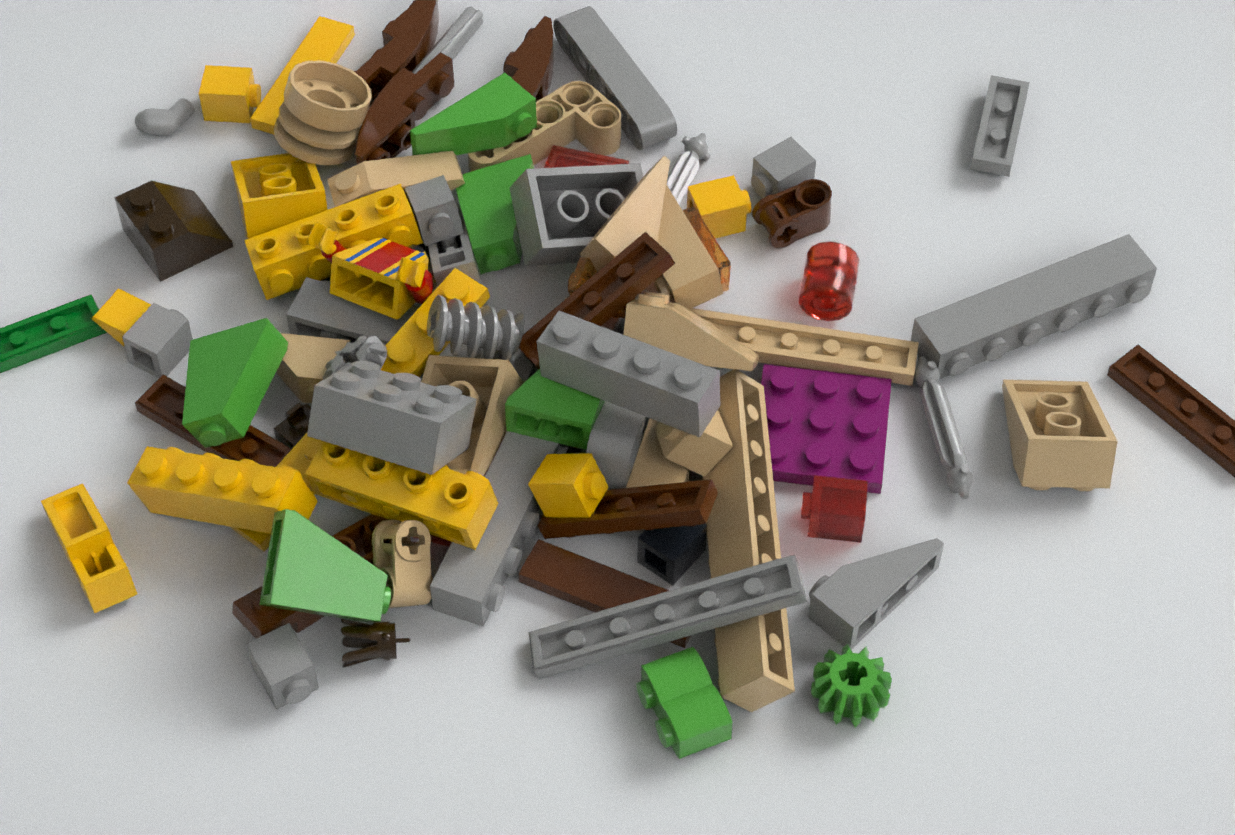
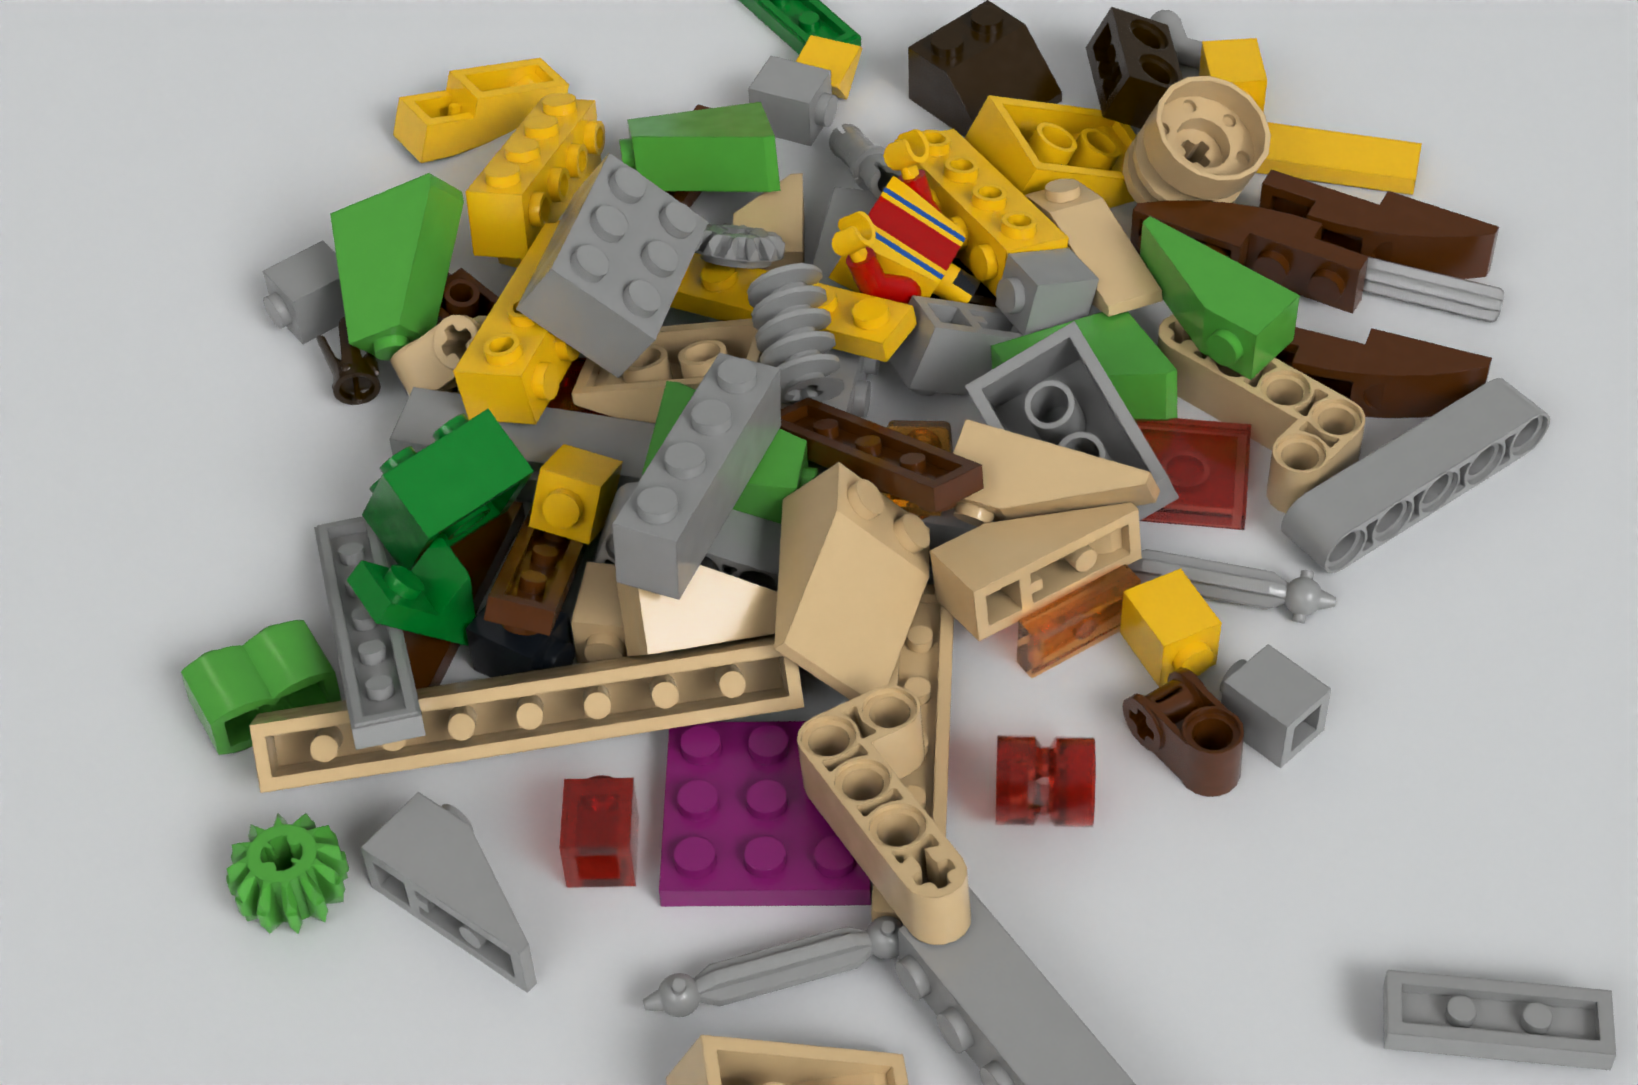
camera: 85 degrees right, 5 degrees down
(205, 138) = (1131, 65): none -> dark brown brick
(276, 288) = (862, 158): none -> light grey pin
(568, 551) = (446, 488): none -> green brick
(652, 571) = (427, 600): none -> green slope
(923, 326) = (853, 778): none -> tan beam

